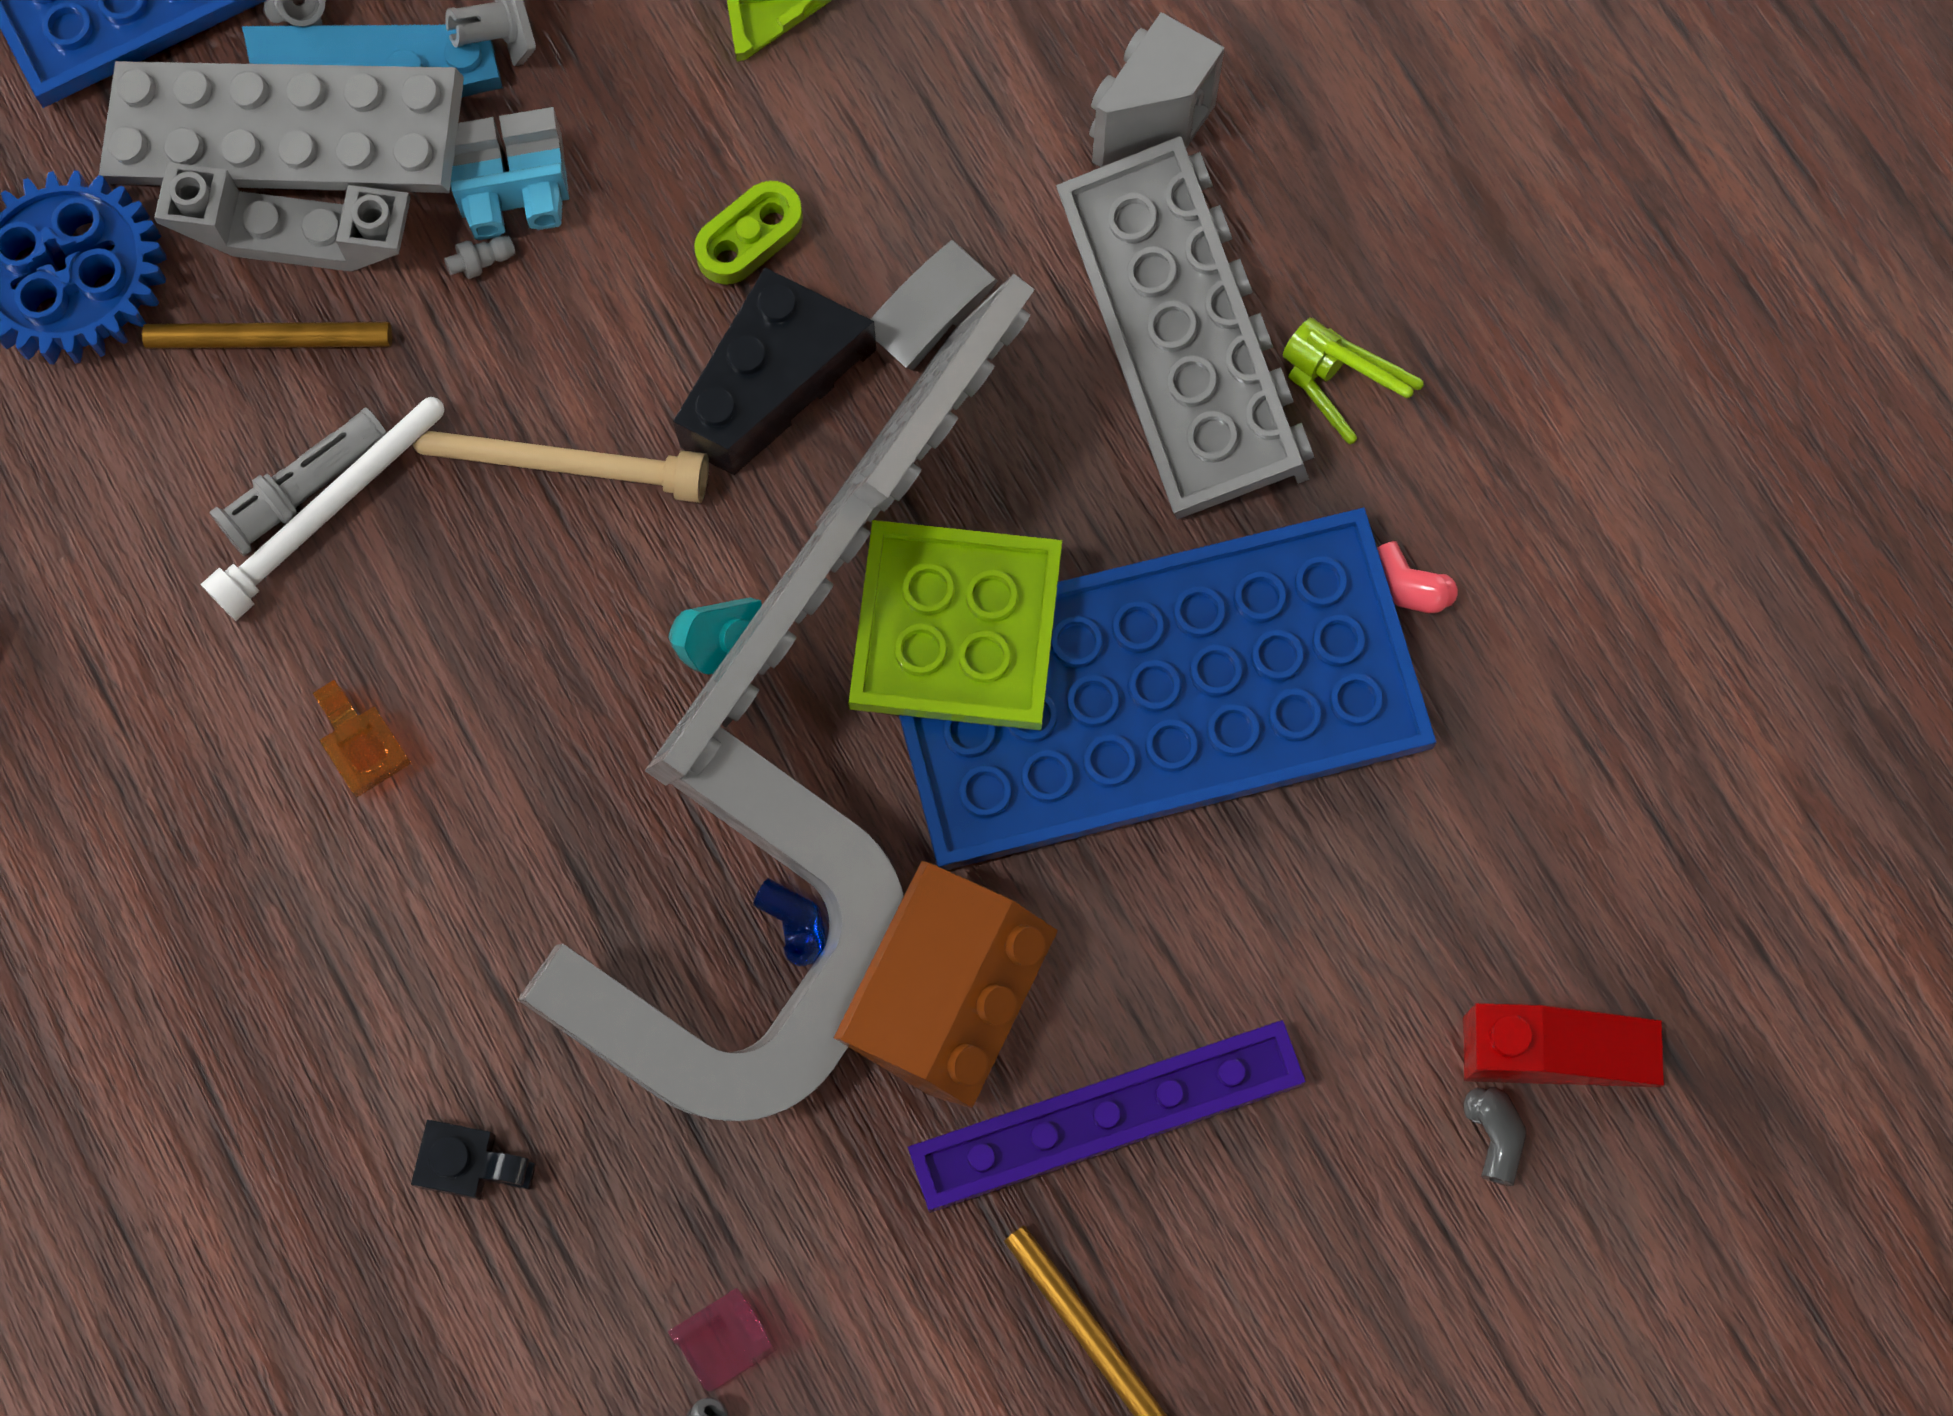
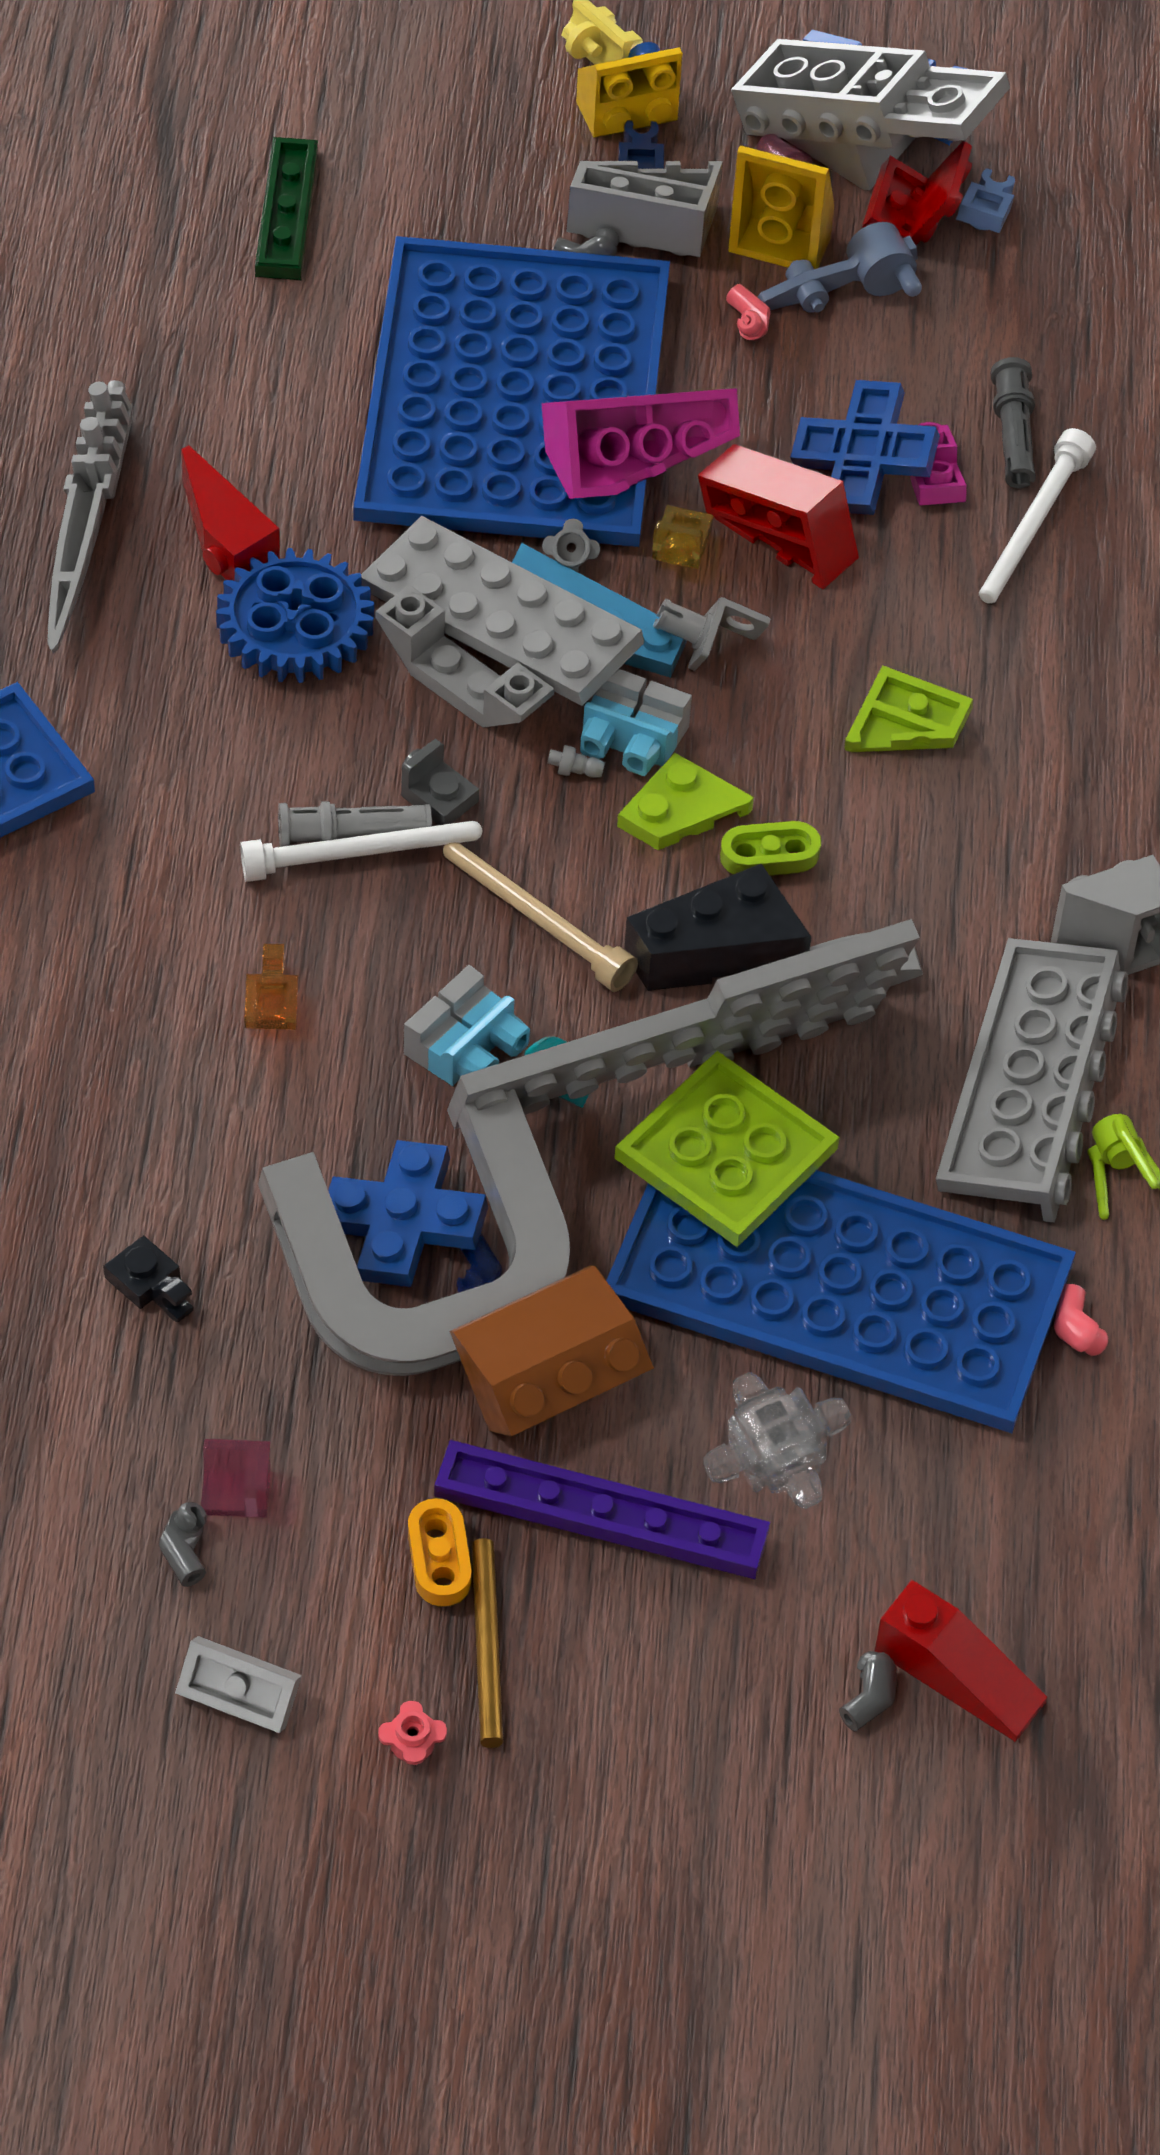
camera: 30 degrees right, 20 degrees down
(267, 335) = (392, 727): pearl gold bar -> none
(356, 377) = (433, 782): none -> dark grey bracket
(583, 654) = (462, 1027): none -> hips
(618, 233) = (680, 803): none -> lime wing
(676, 911) = (407, 1213): none -> blue plate
(983, 1278) = (439, 1556): none -> light orange plate
(1228, 923) = (777, 1440): none -> clear piece

